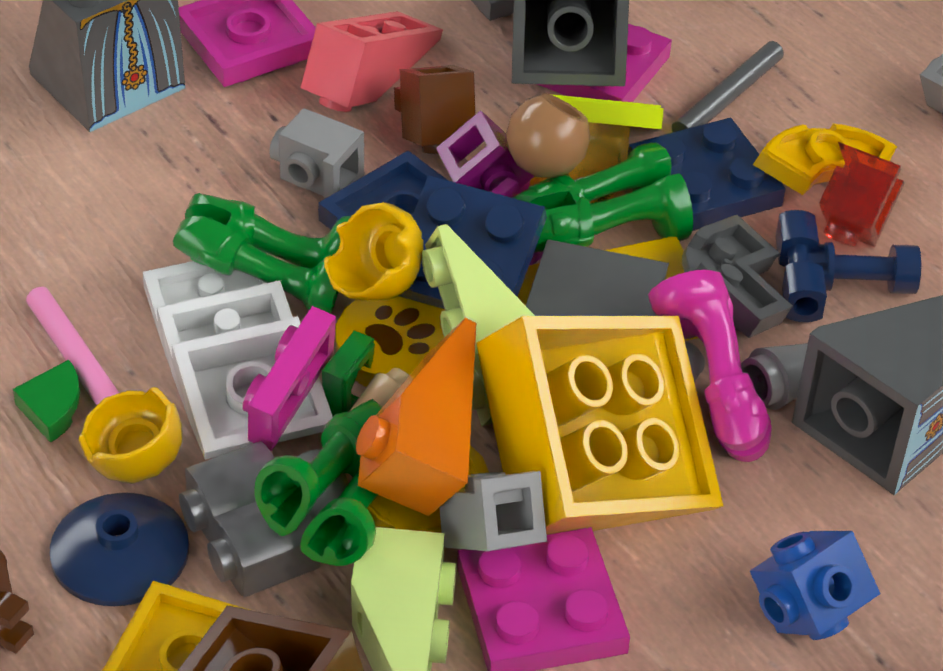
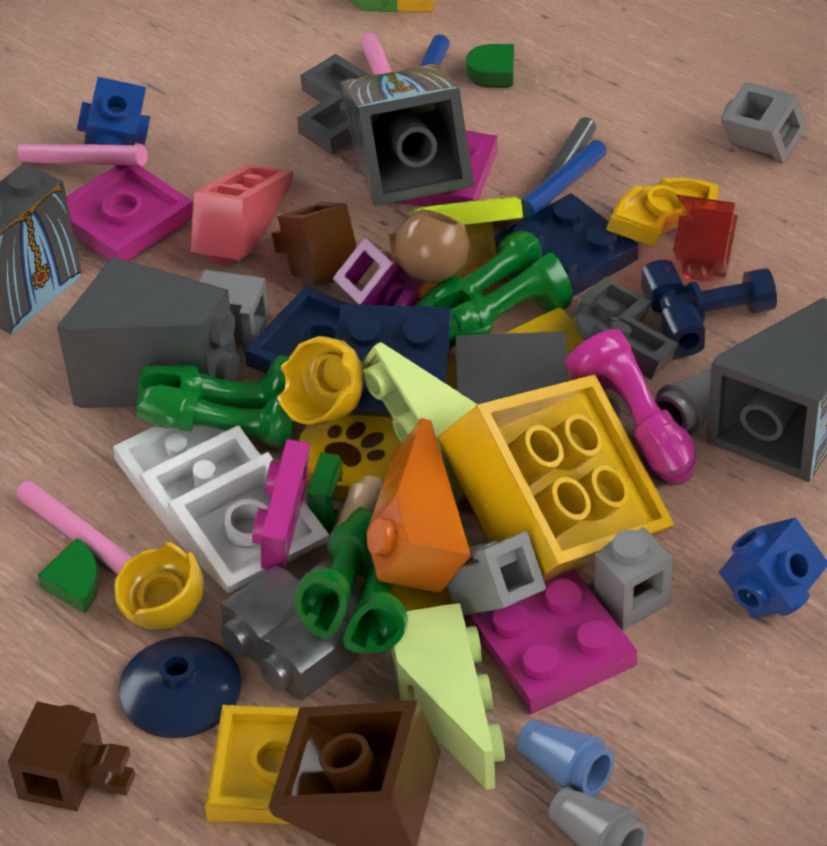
camera: 10 degrees left, 0 degrees up
(217, 145) = (143, 319): none -> dark grey slope
(648, 534) = (631, 561): none -> light grey brick
(723, 100) = (562, 178): none -> blue bar

